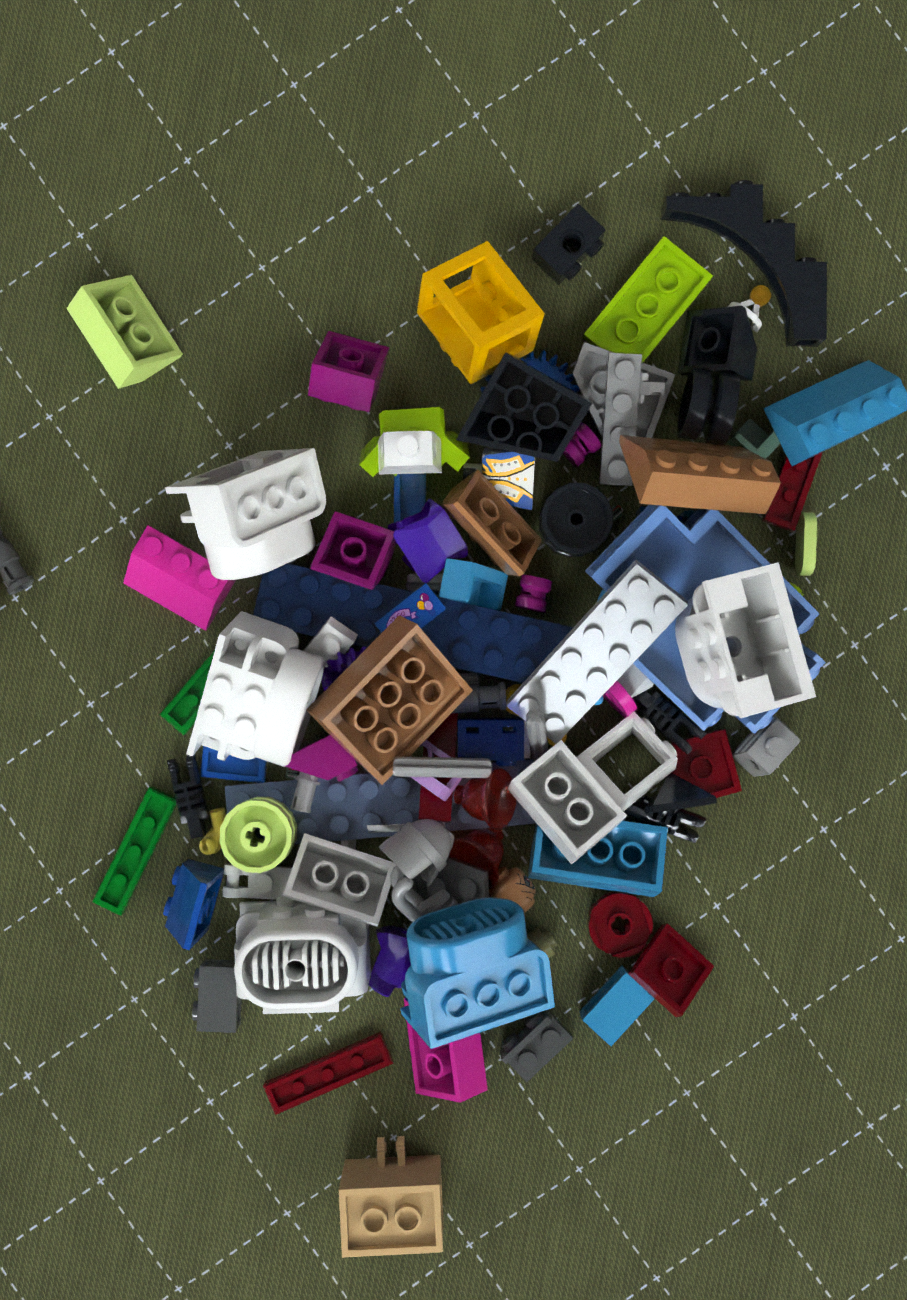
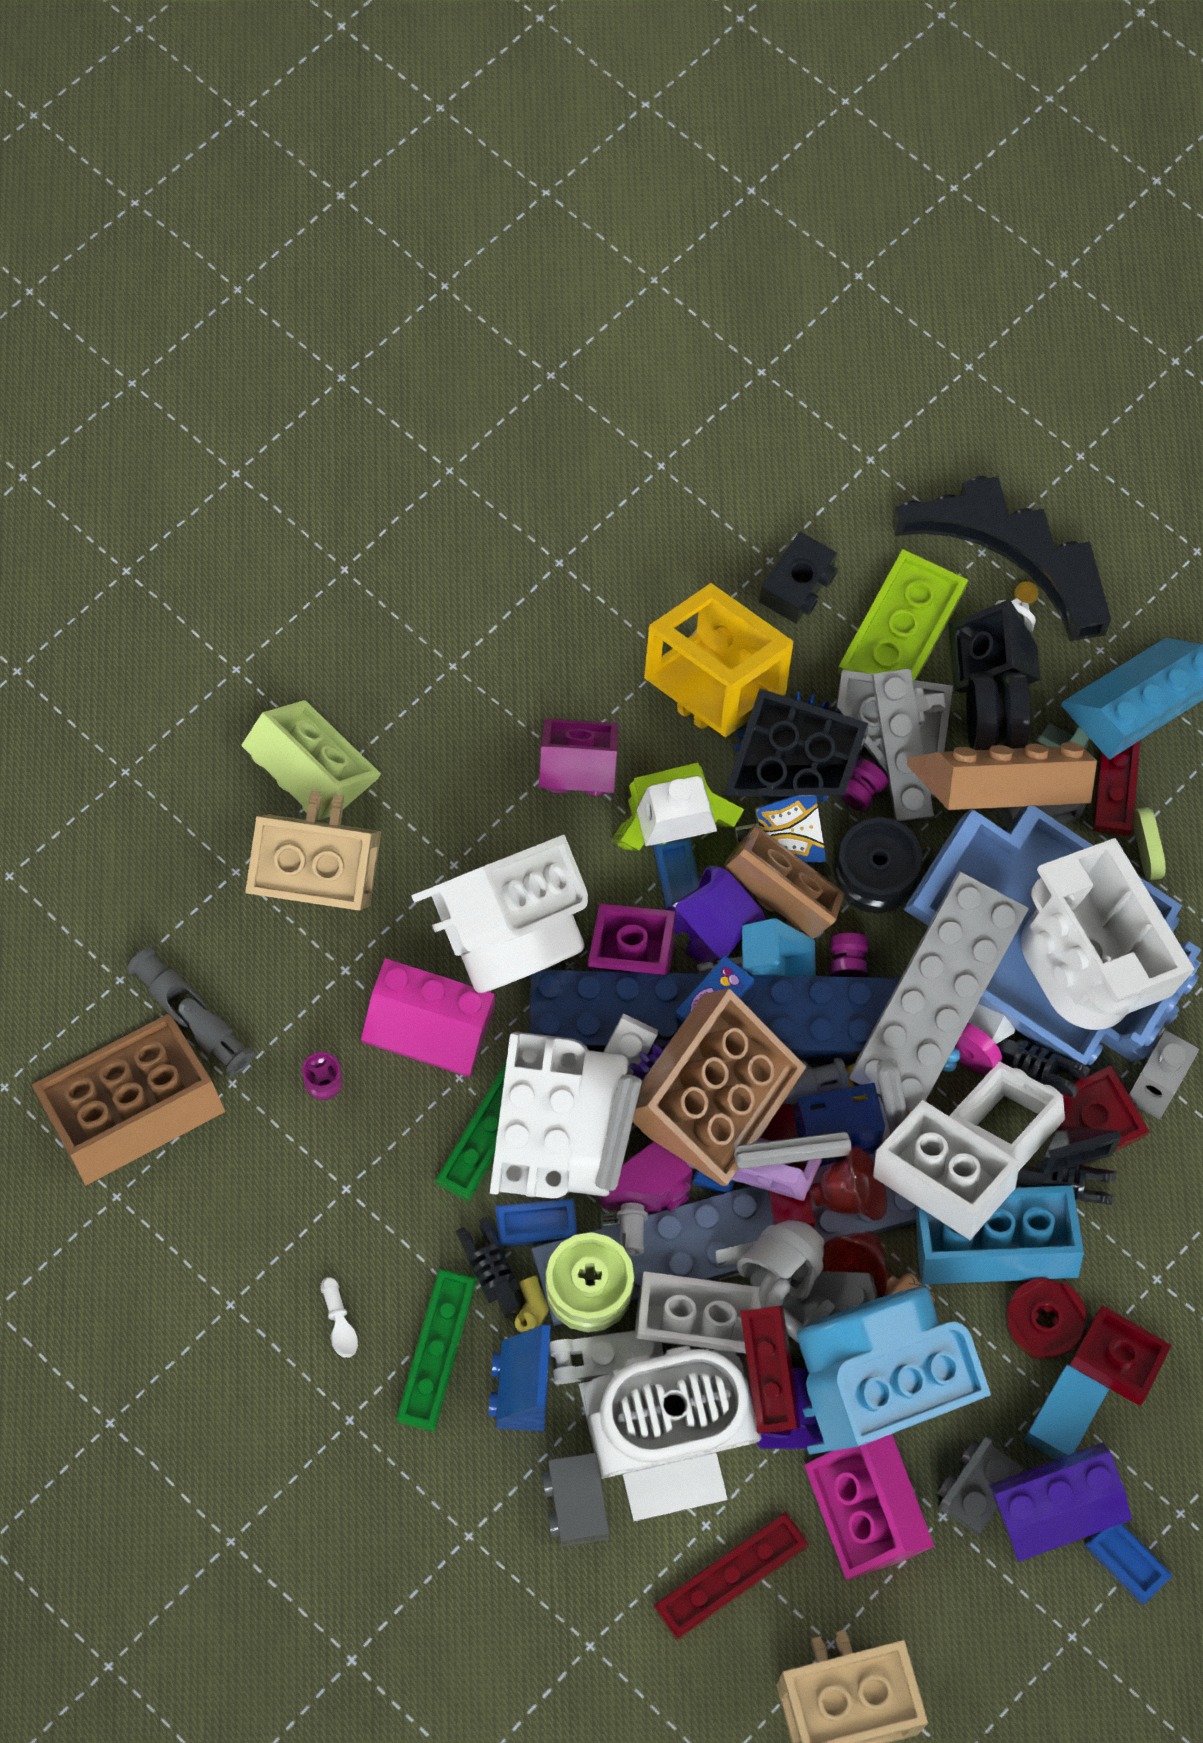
camera: 10 degrees left, 20 degrees down
(65, 825) = (343, 1334): none -> white piece
(78, 606) = (321, 1068): none -> magenta wheel
(100, 427) = (314, 858): none -> tan piece
(297, 730) = (618, 1132): none -> light grey axle
(382, 945) = (770, 1369): none -> dark red plate
(592, 1075) = (1061, 1501): none -> dark purple slope
(636, 1123) = (1129, 1561): none -> blue tile

